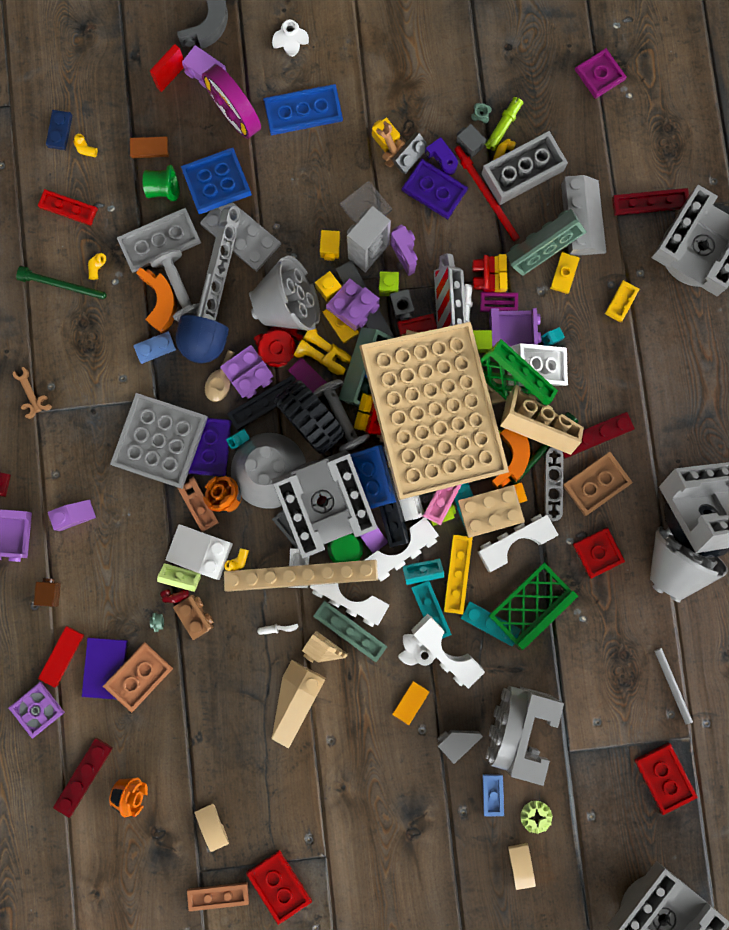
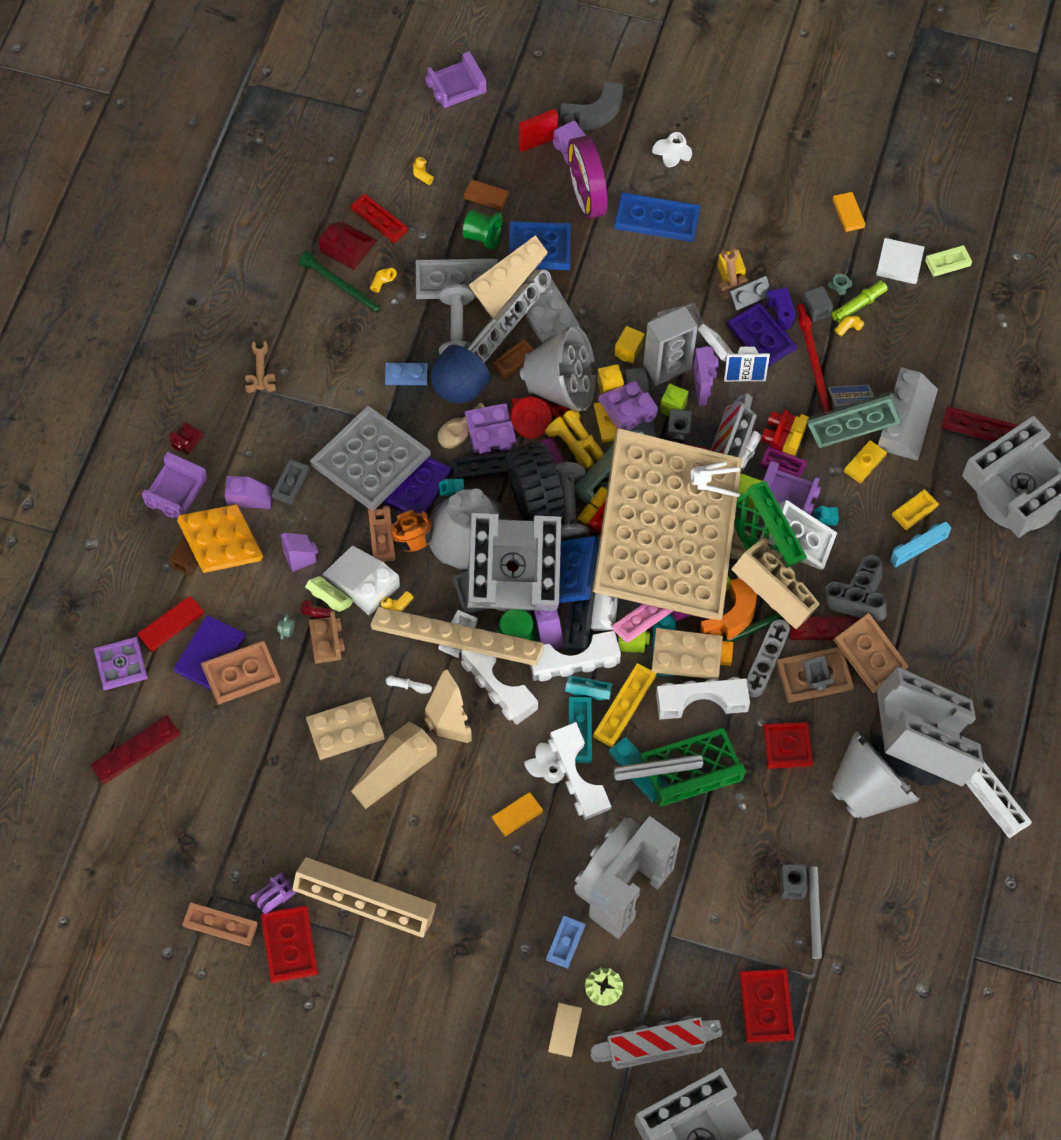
camera: 20 degrees right, 20 degrees down
(50, 244) = (345, 244): none -> dark red slope
(59, 130) = (404, 148): dark blue plate -> none
(67, 568) = (219, 538): none -> light orange plate
(76, 45) = (457, 81): none -> medium lavender panel
(102, 489) = (290, 482): none -> dark grey plate
(127, 796) = (175, 780): orange cone -> none
(137, 551) = (298, 550): none -> medium lavender slope
(166, 306) = (426, 347): orange arch -> none
(201, 229) = (506, 277): none -> tan wedge
(211, 827) = (246, 852): tan slope -> none
(239, 295) = (512, 359): none -> dark orange tile
(243, 687) = (345, 728): none -> tan plate
(255, 841) = (273, 893): none -> medium lavender arm
(321, 828) = (364, 897): none -> tan brick
(350, 631) = (485, 717): sand green plate -> none
(406, 217) = (715, 341): none -> white tile
(437, 225) = (746, 365): none -> piece
(446, 357) = (702, 475): none -> white plant
(457, 743) = (550, 871): light grey slope -> none
(462, 39) = (848, 211): none -> light orange tile
(508, 623) = (658, 767): none -> light grey axle
(522, 69) = (900, 261): none -> white tile
(524, 168) = (862, 346): light grey brick -> none
(532, 217) = (849, 394): none -> piece
(563, 54) = (948, 260): none -> yellowish green plate
(595, 848) = (657, 1042): none -> light grey hinge
(600, 73) = (981, 293): magenta tile -> none
(603, 487) = (817, 673): none -> dark grey bracket
(611, 398) = (859, 596): none -> dark grey beam
(636, 448) = (869, 652): none -> medium nougat plate
(637, 331) = (920, 543): none -> medium azure plate
(656, 673) = (793, 890): none -> dark grey brick

